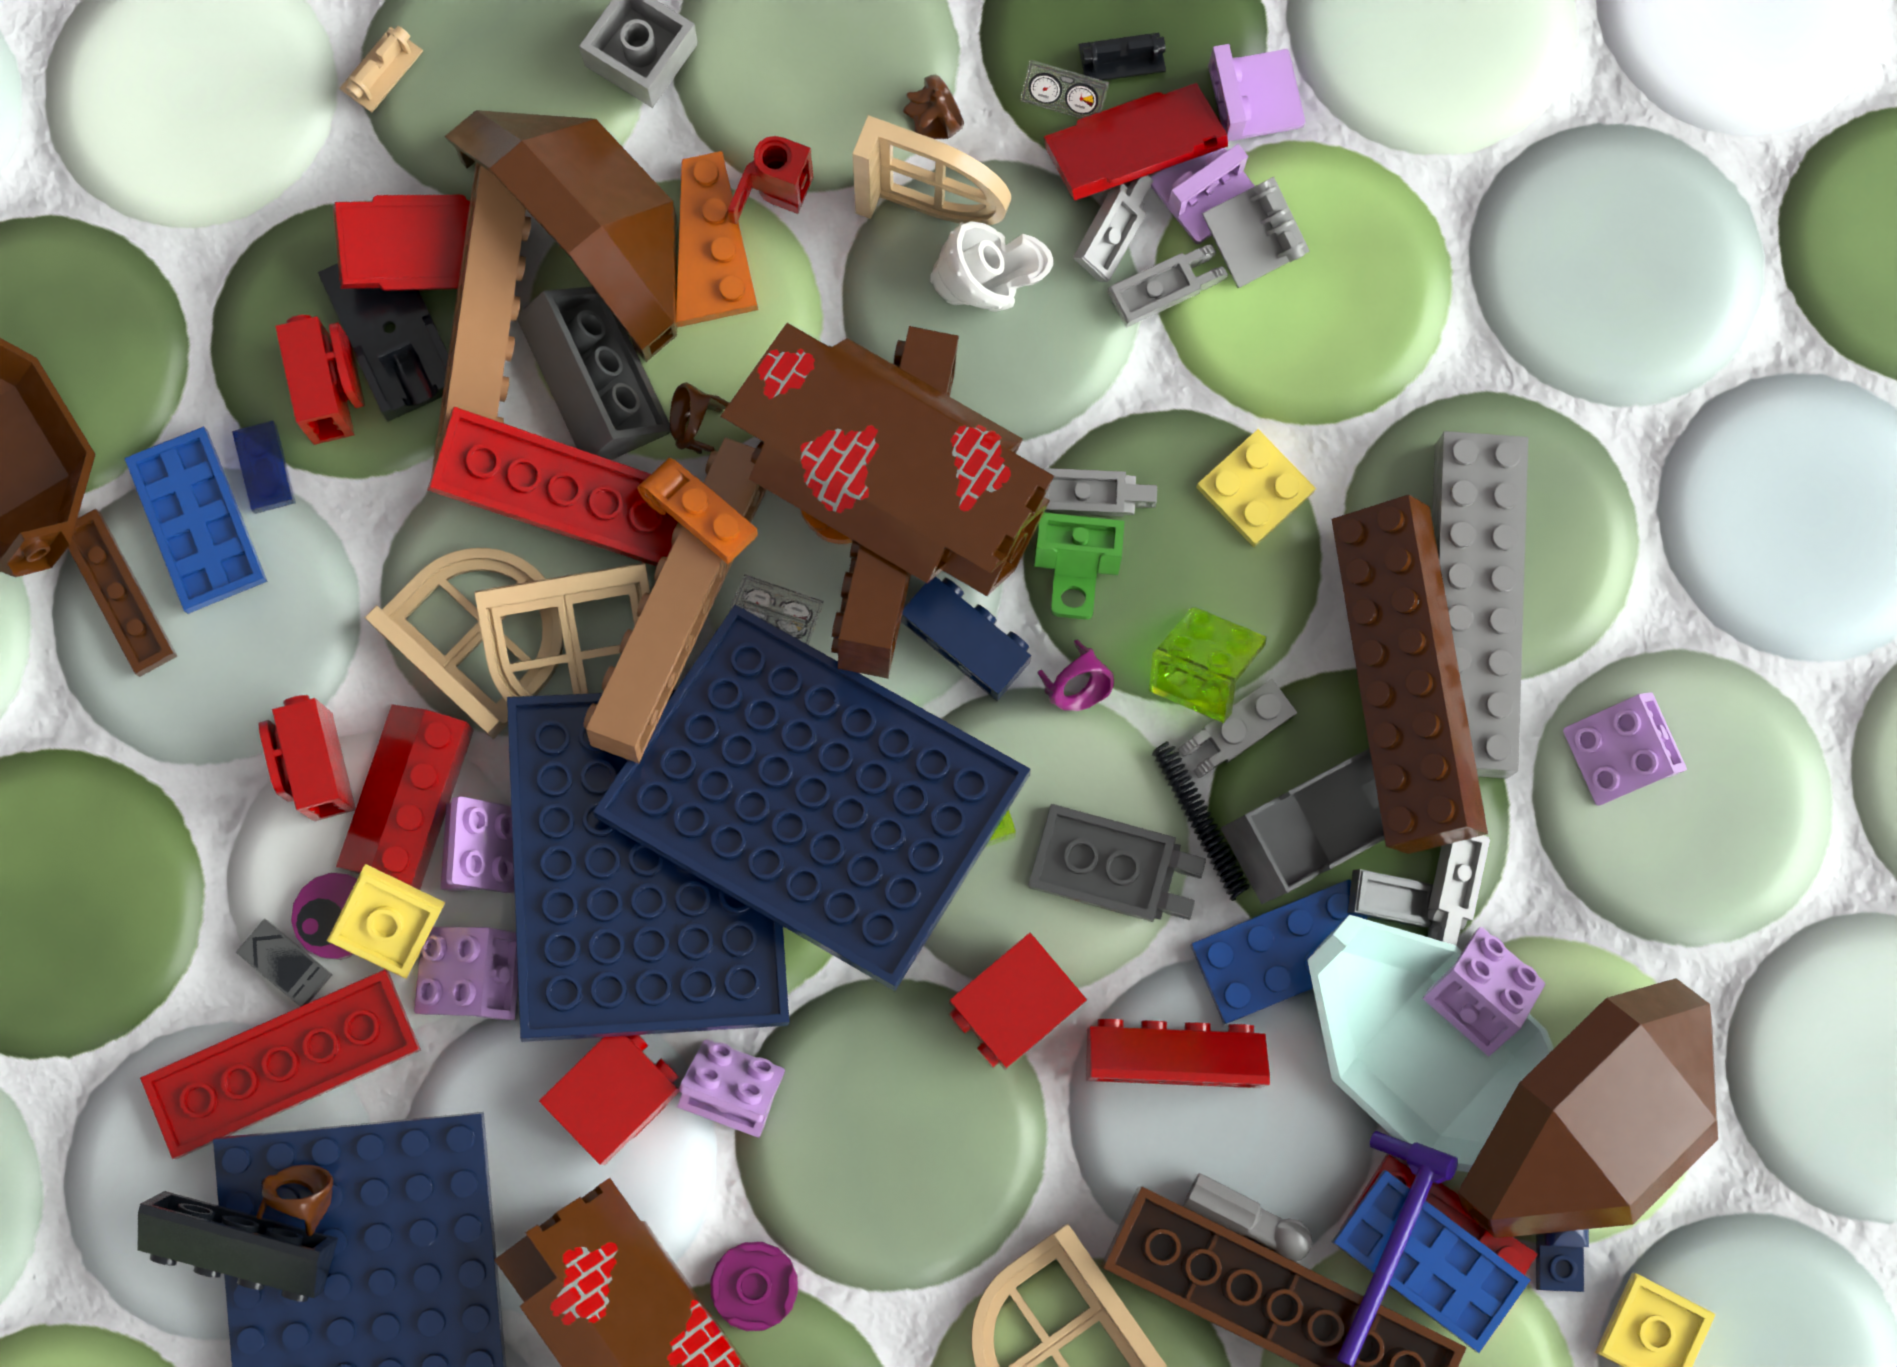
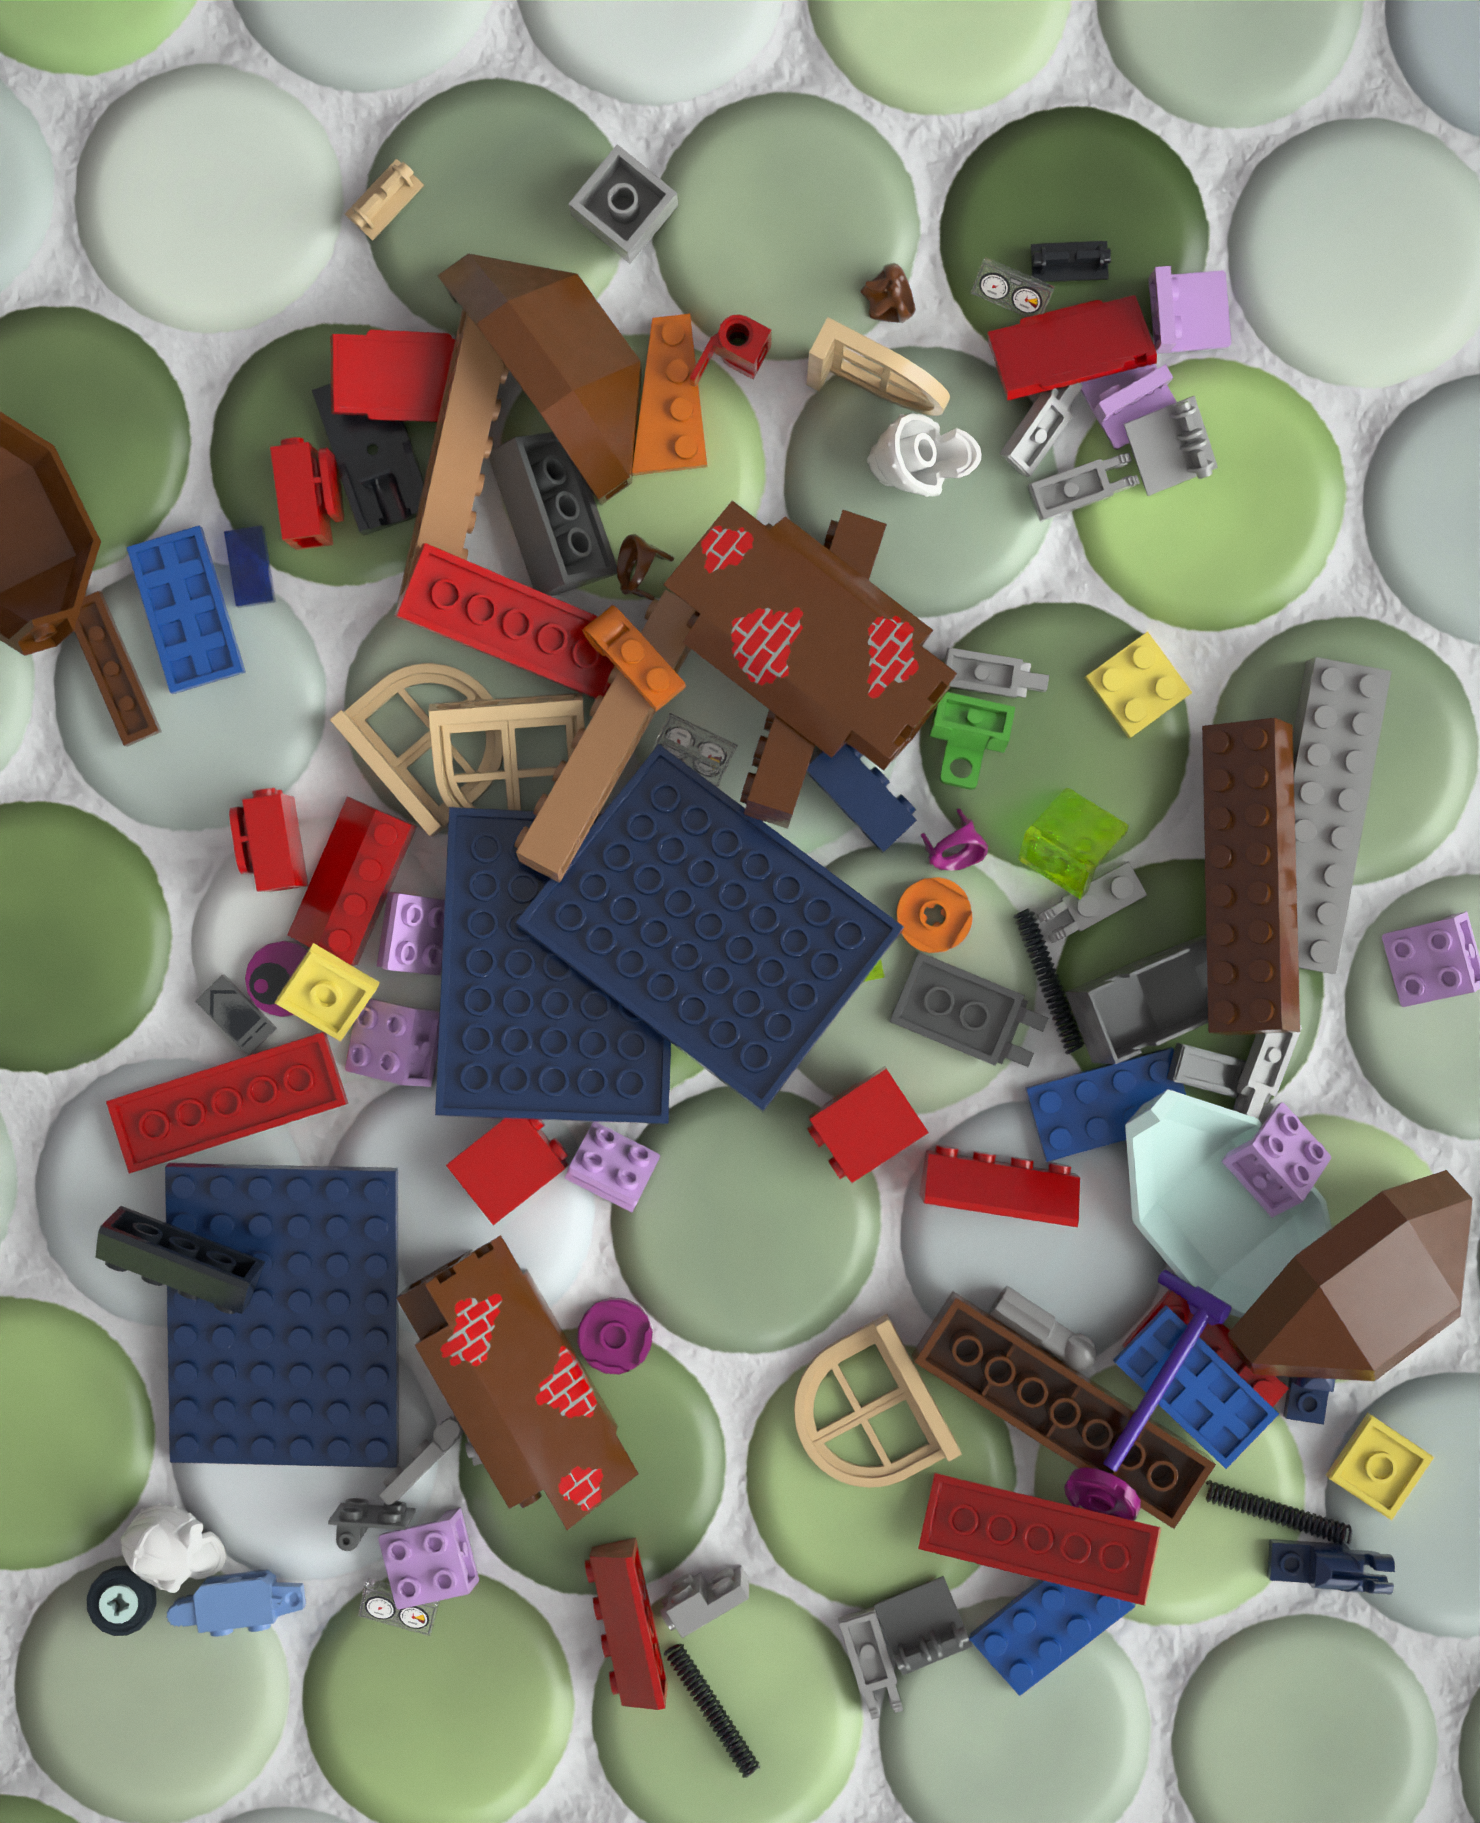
camera: 15 degrees right, 10 degrees up
(309, 1208) = (247, 1210): reddish brown piece -> none
(1085, 750) = (955, 909): none -> orange plate

